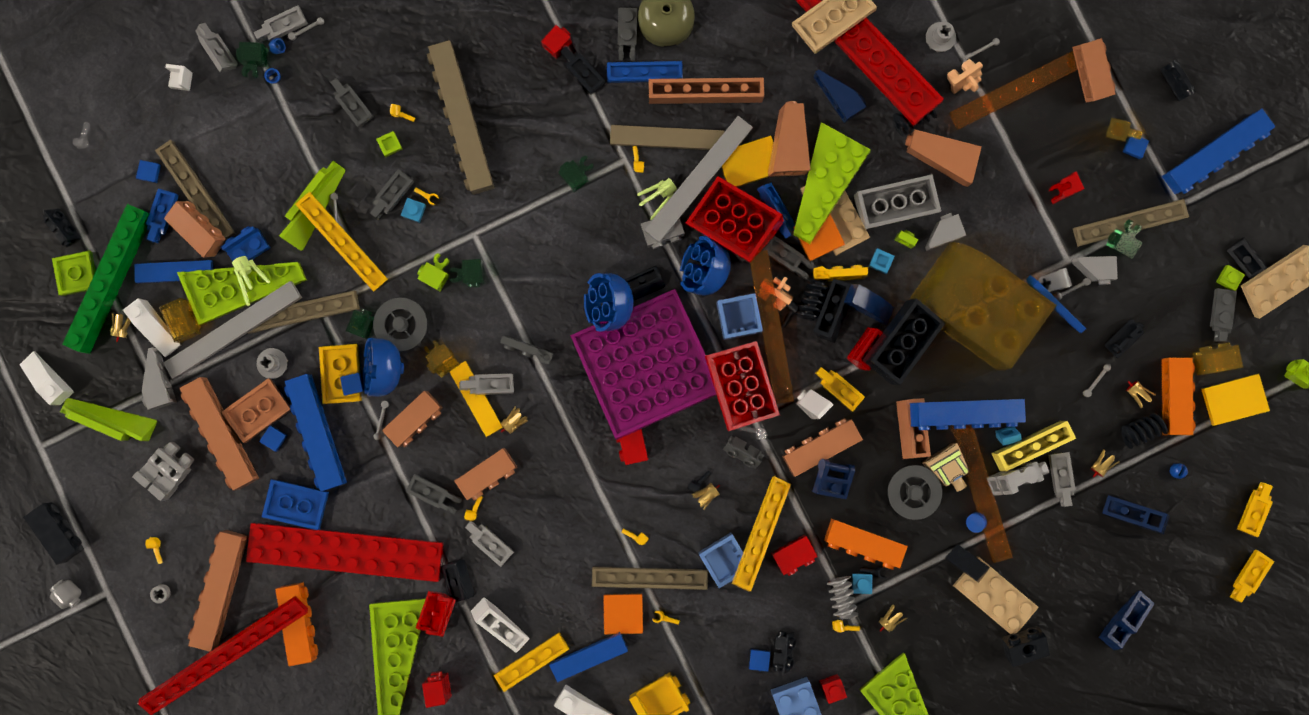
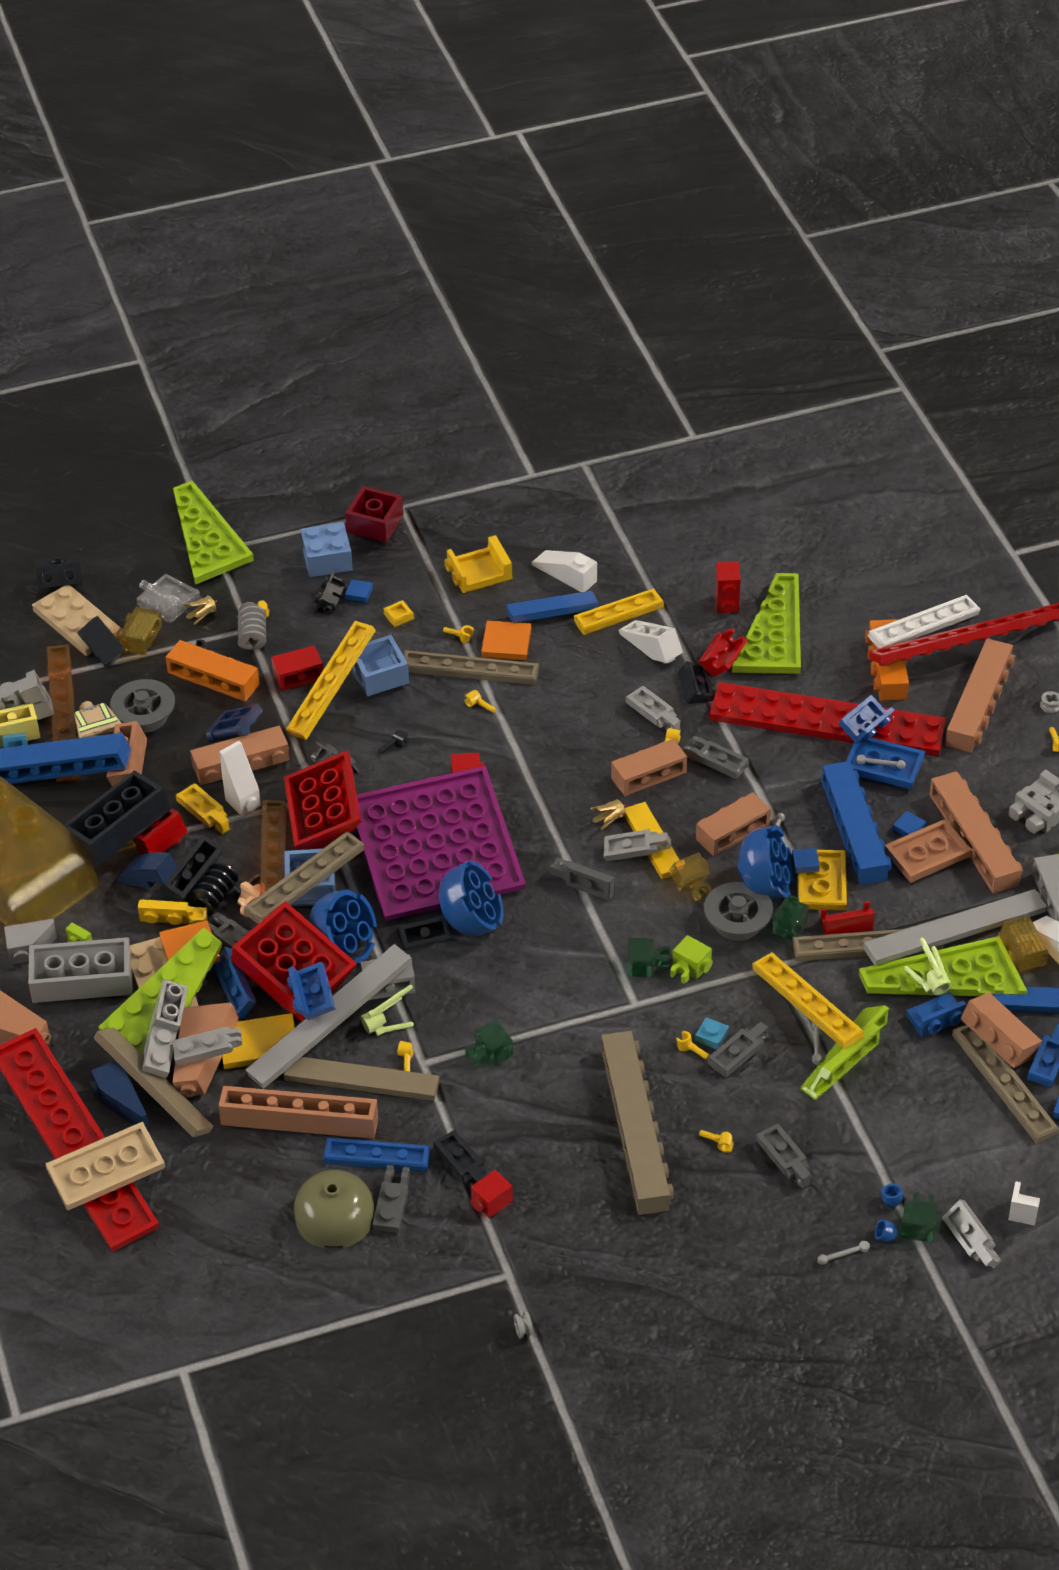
camera: 170 degrees left, 40 degrees down
(265, 666) = (924, 622): none -> white tile
(272, 363) = (908, 891): light grey gear -> none
(281, 24) = (876, 1254): light grey hinge -> none
(307, 538) = (865, 718): none -> bracket
(312, 499) = (861, 759): none -> light grey hinge
(317, 330) = (848, 922): none -> red hinge
(389, 144) = (736, 1103): lime plate -> none
(708, 493) = (385, 729): pearl gold piece -> none
(714, 183) = (311, 991): none -> blue bracket
(720, 636) = (398, 613): none -> yellow tile
(740, 298) = (305, 876): none -> dark tan tile
(784, 129) = (206, 1045): none -> light grey hinge
(818, 104) = (155, 1085): none -> dark tan tile
(819, 143) = (163, 1028): none -> light grey slope
(833, 689) = (282, 557): red brick -> none
(862, 583) = (225, 642): dark azure plate -> none
(881, 261) = (117, 922): dark azure plate -> none
(923, 629) = (167, 596): none -> clear plate
(938, 584) = (140, 630): none -> clear yellow brick
(976, 522) = (78, 677): blue tile -> none

